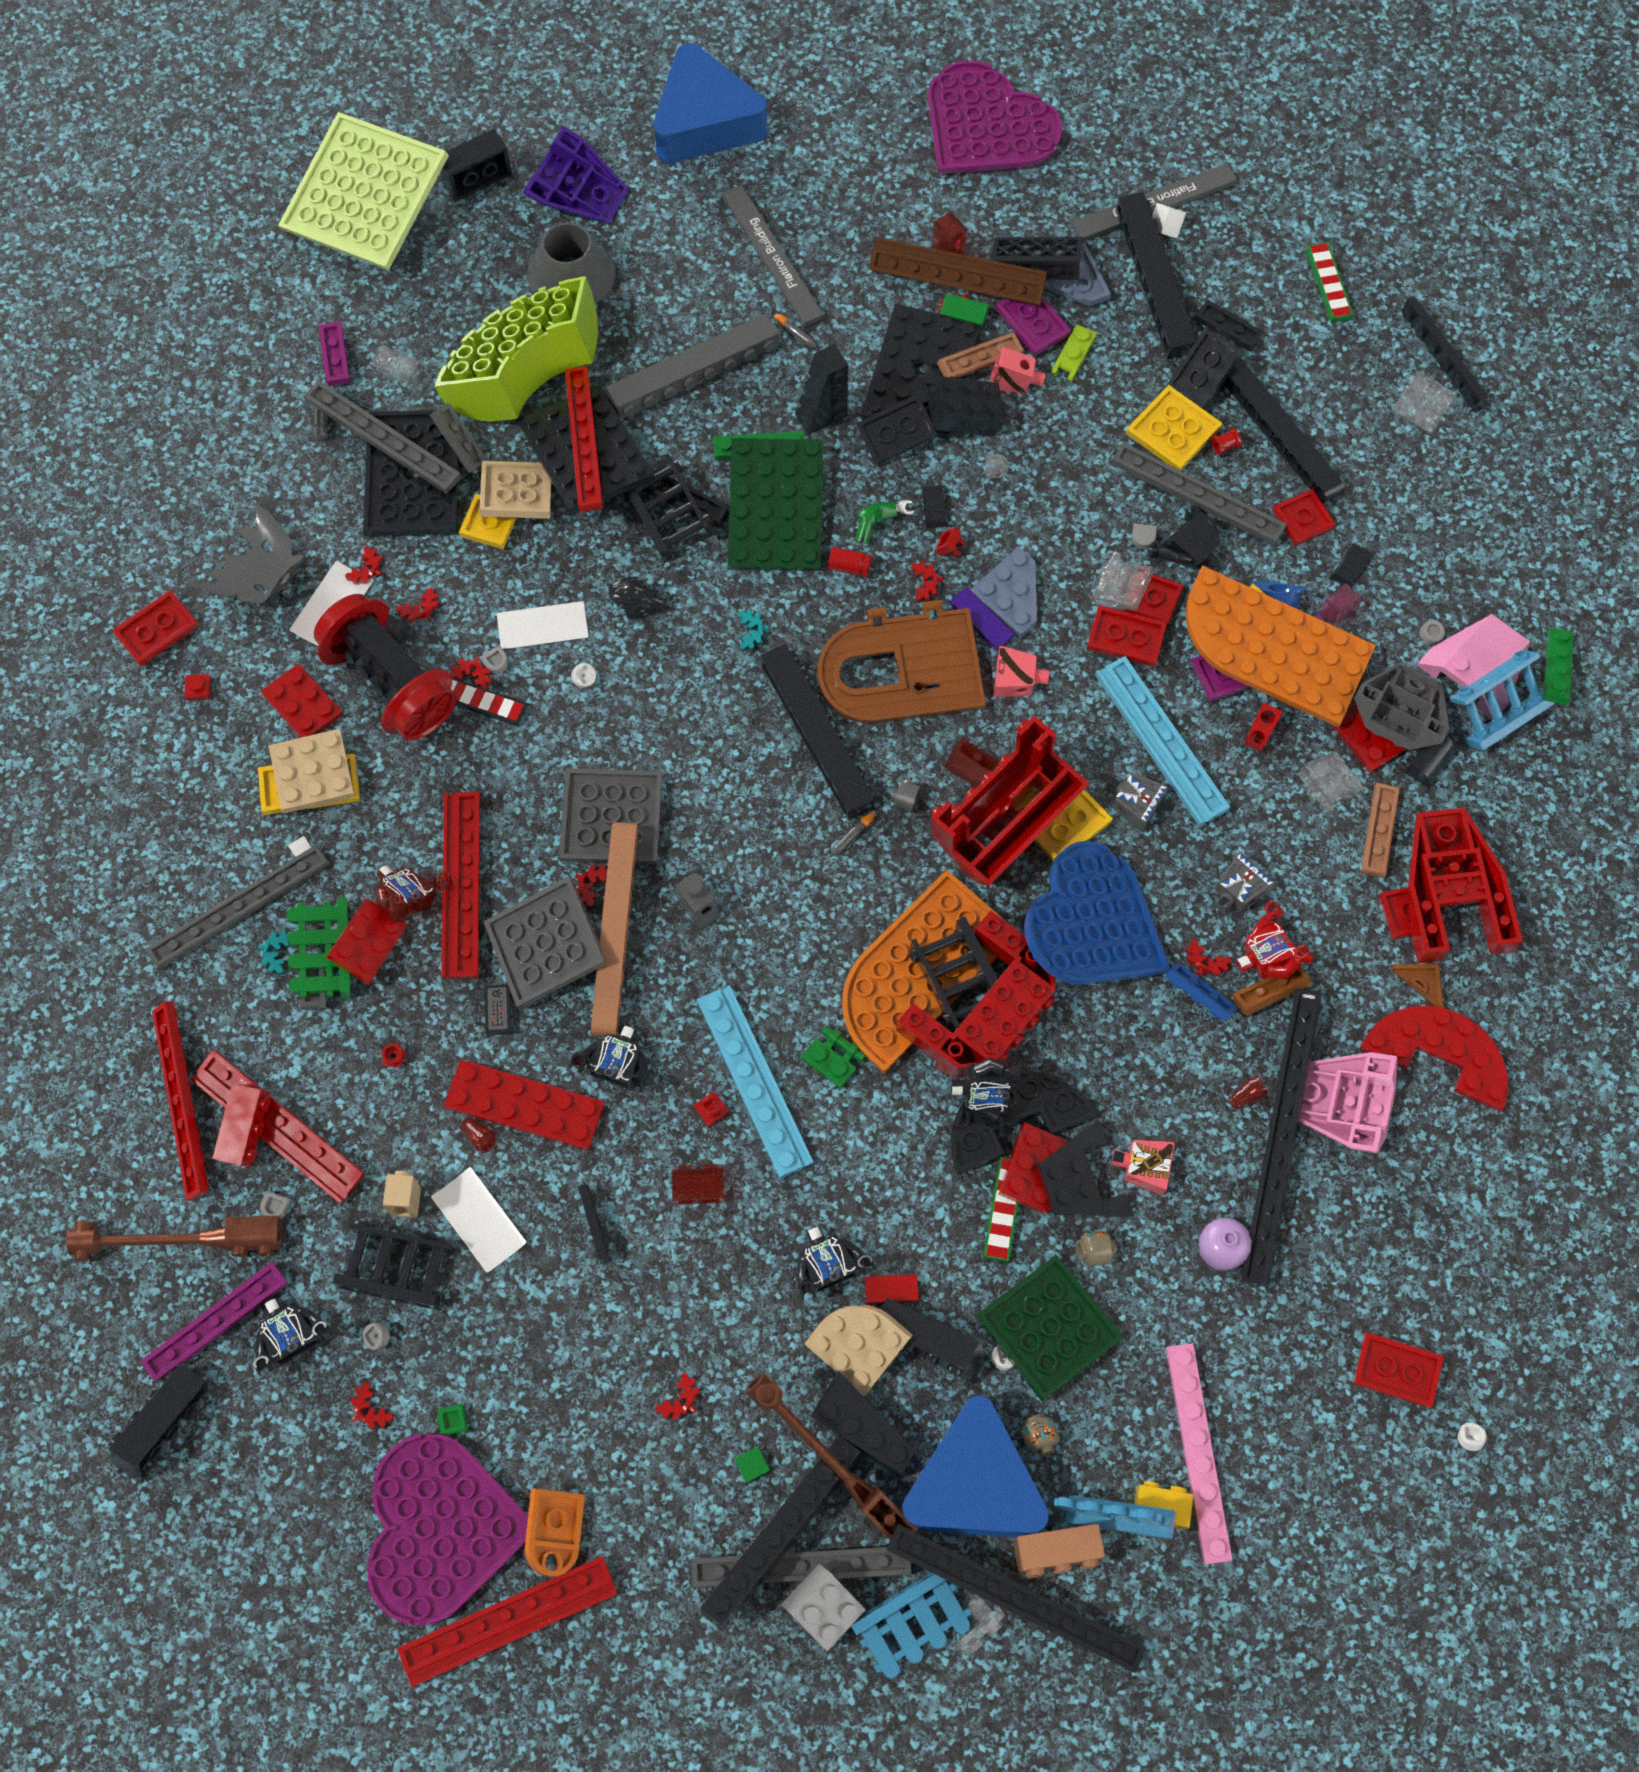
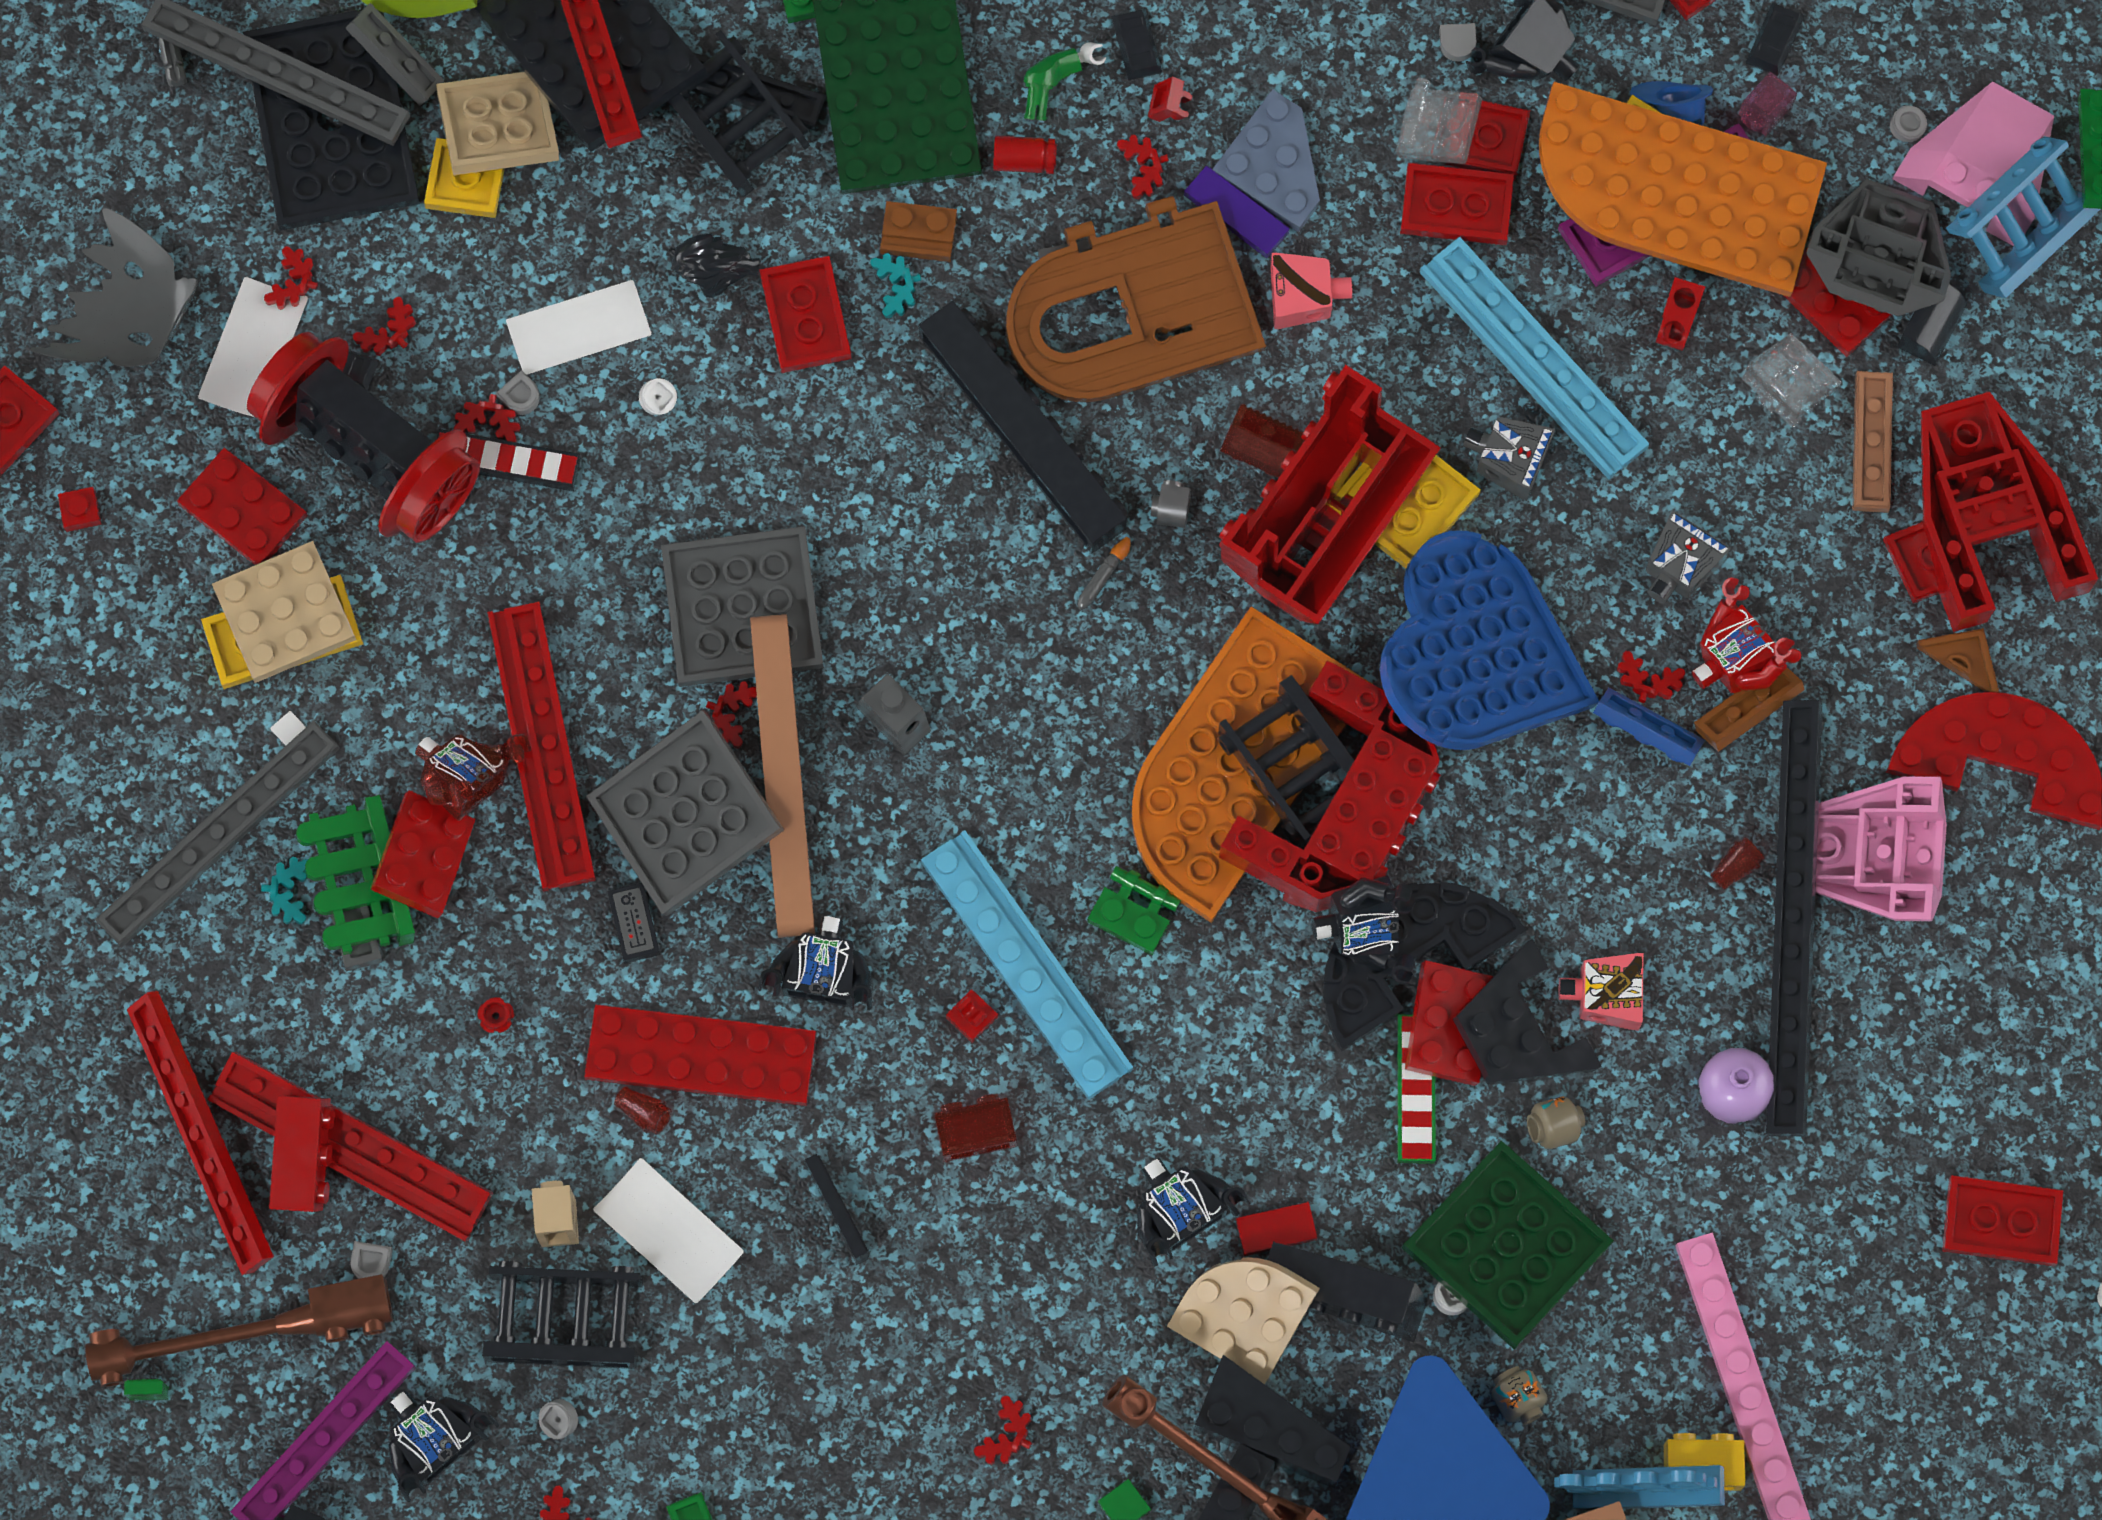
camera: 10 degrees left, 5 degrees up
(103, 1267) = (145, 1389): none -> green tile
(689, 639) = (805, 314): none -> red plate
(773, 599) = (918, 231): none -> dark orange plate

